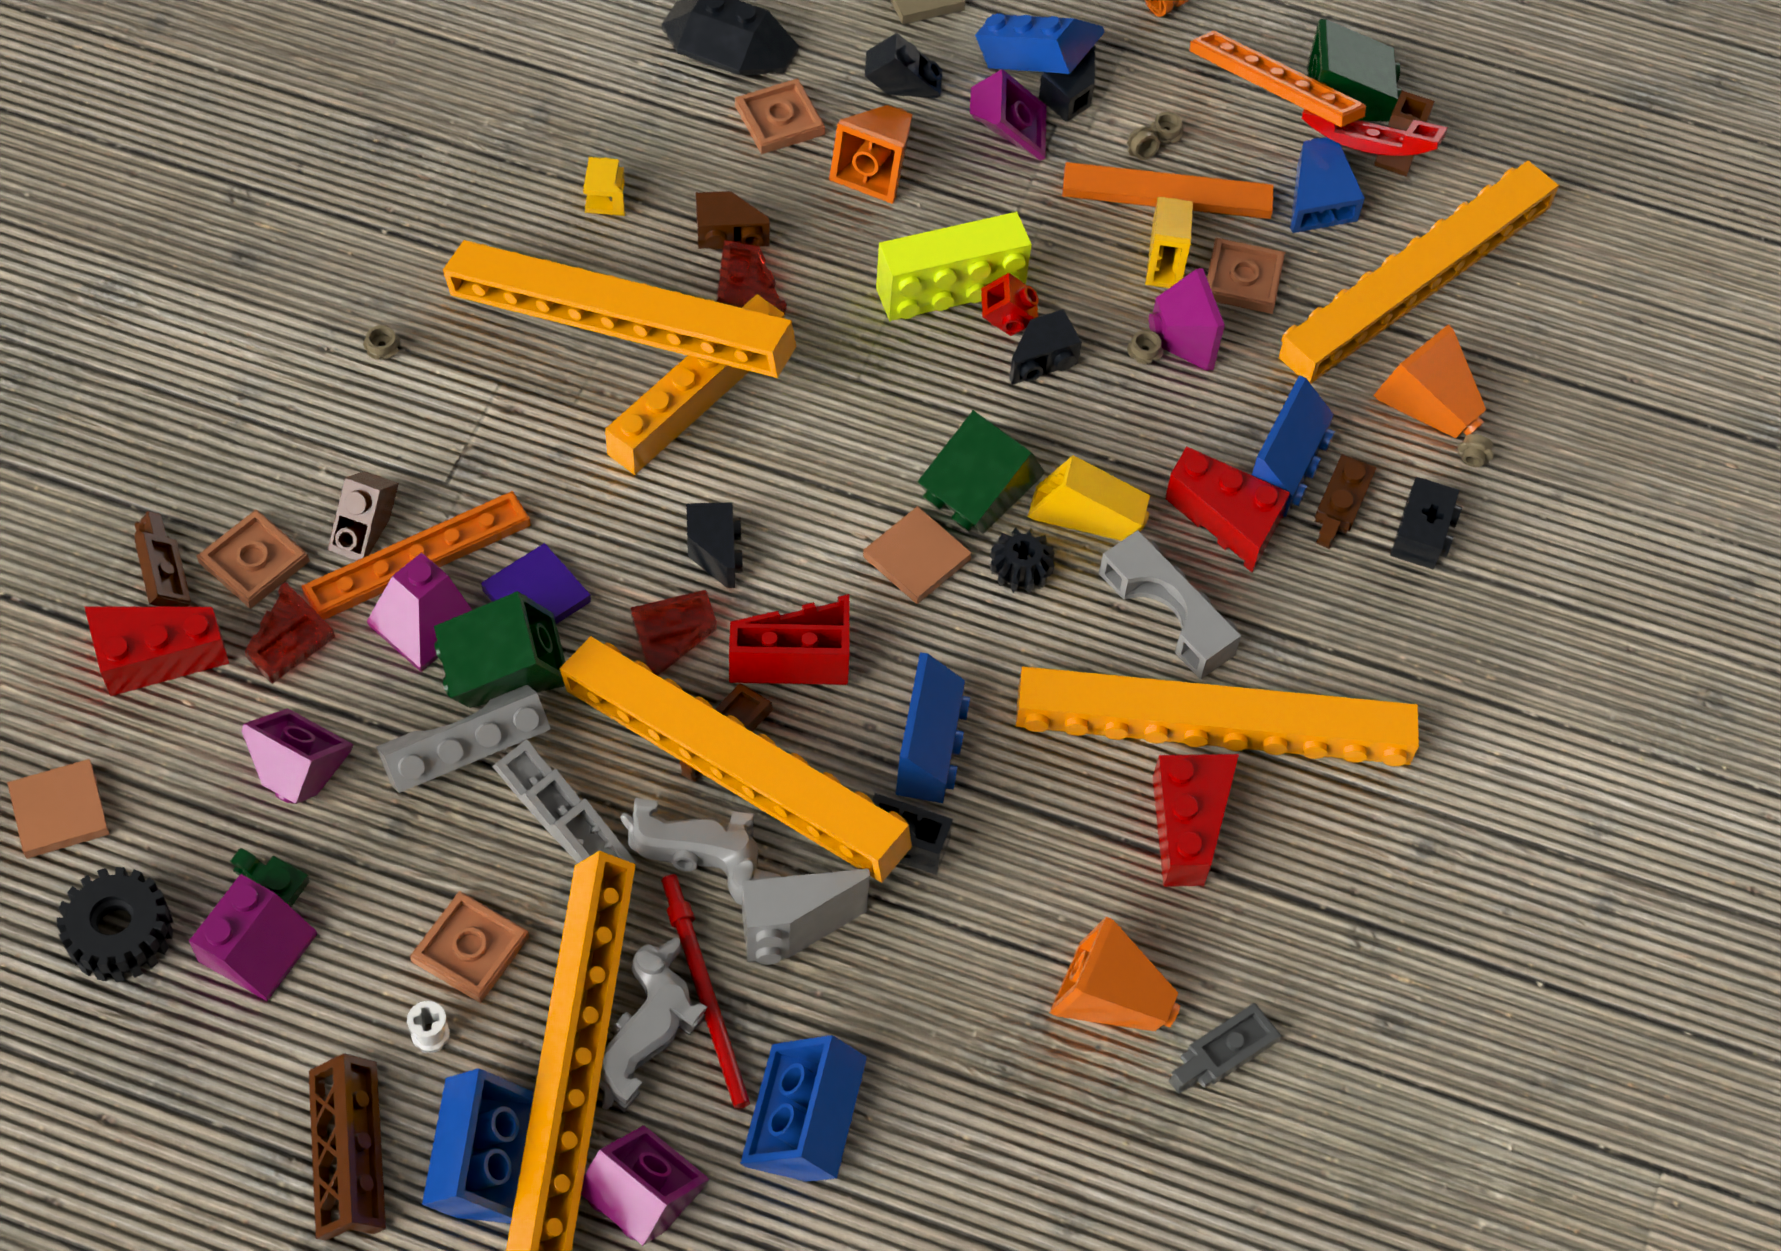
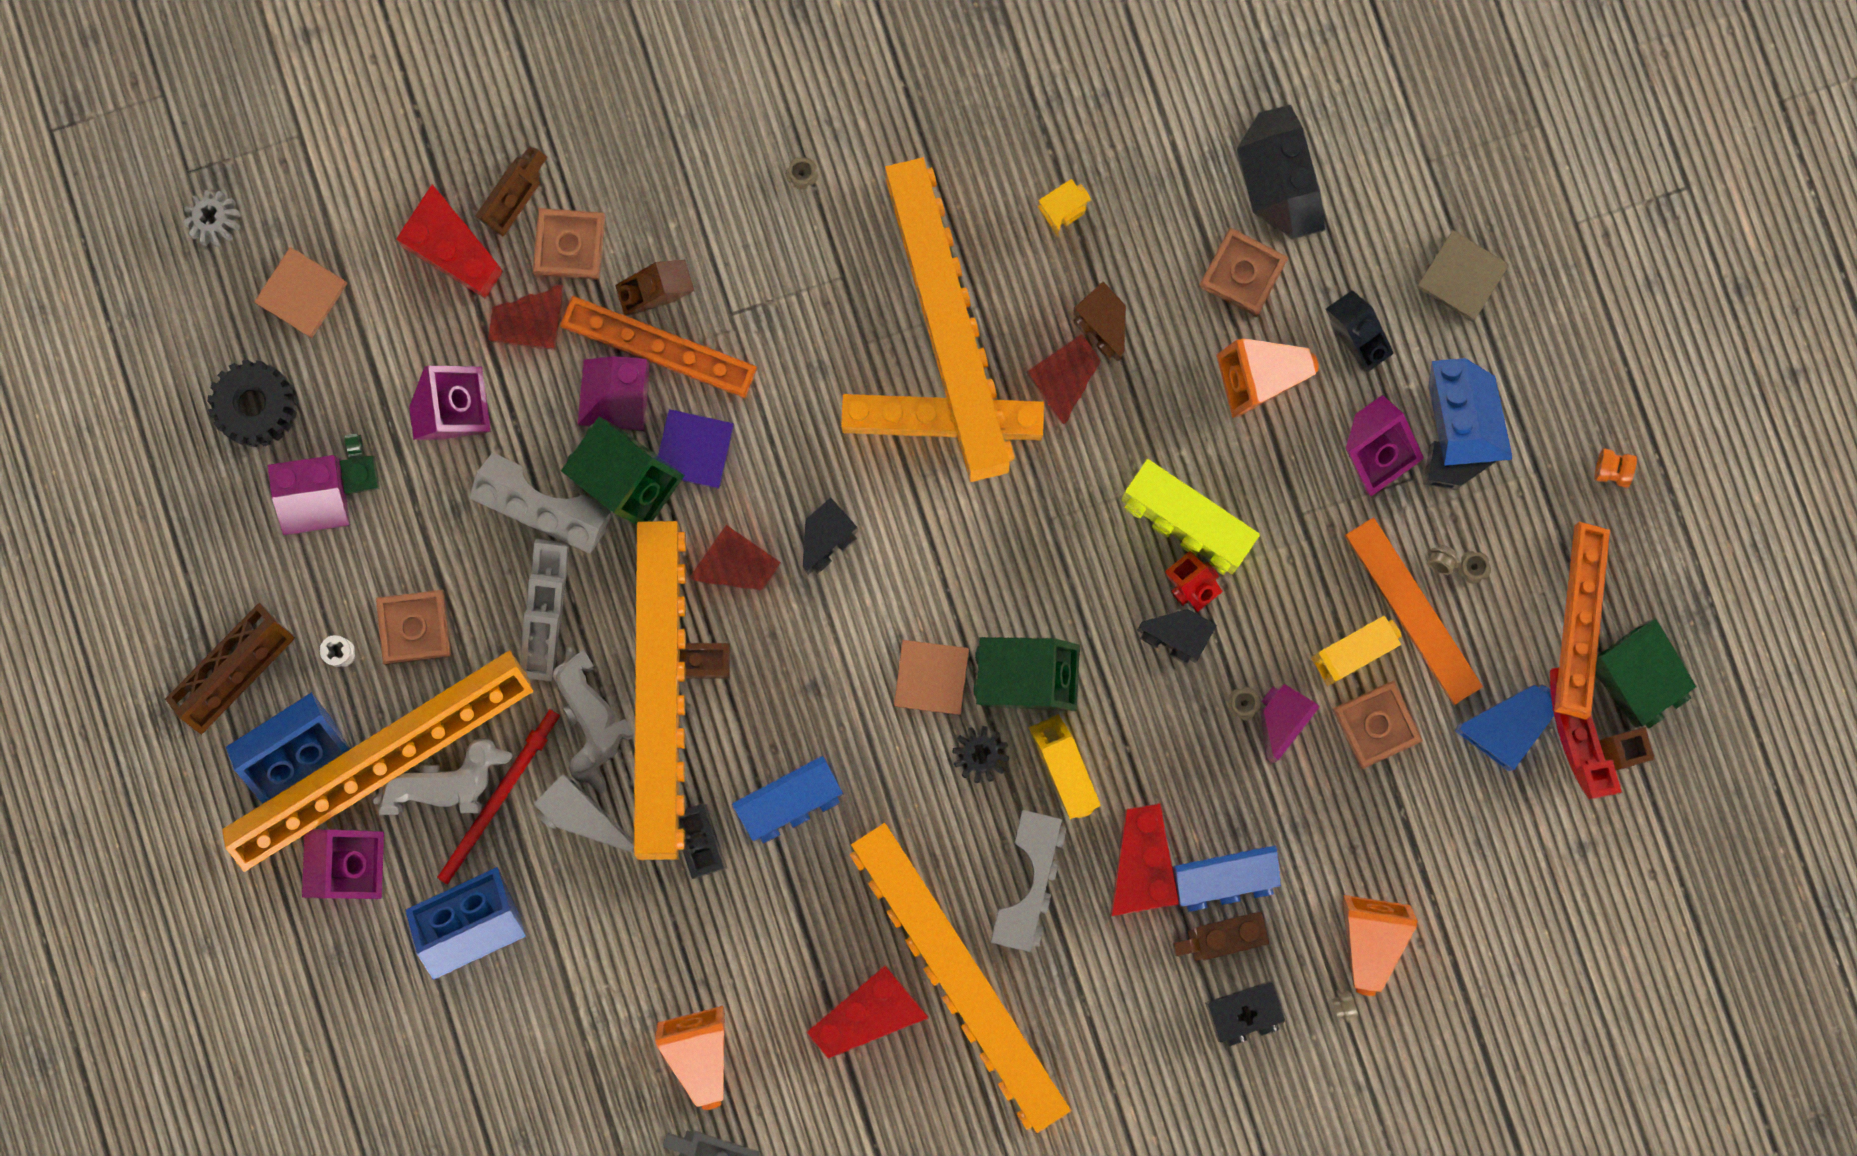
camera: 60 degrees right, 25 degrees up
(793, 647) = (782, 658): red wedge -> none
(1417, 271) = (1488, 854): light orange brick -> none

